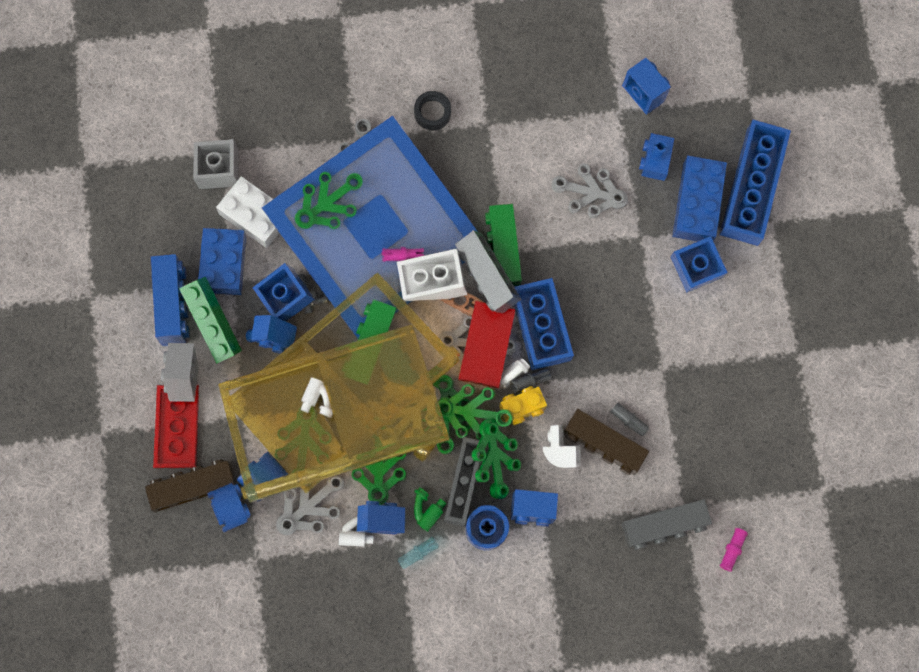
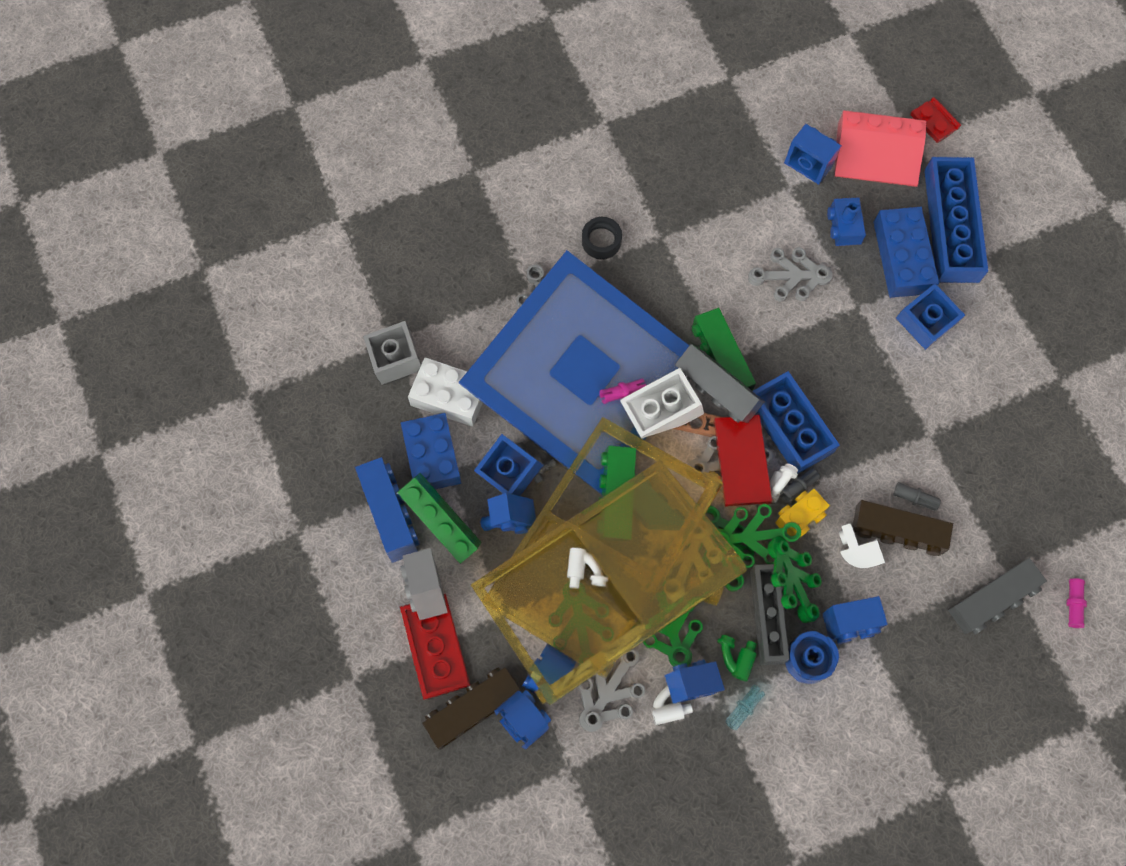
camera: 10 degrees left, 5 degrees down
(326, 203) = (527, 358): green plant -> none
(712, 97) = (880, 148): none -> coral slope
(775, 83) = (938, 120): none -> red plate

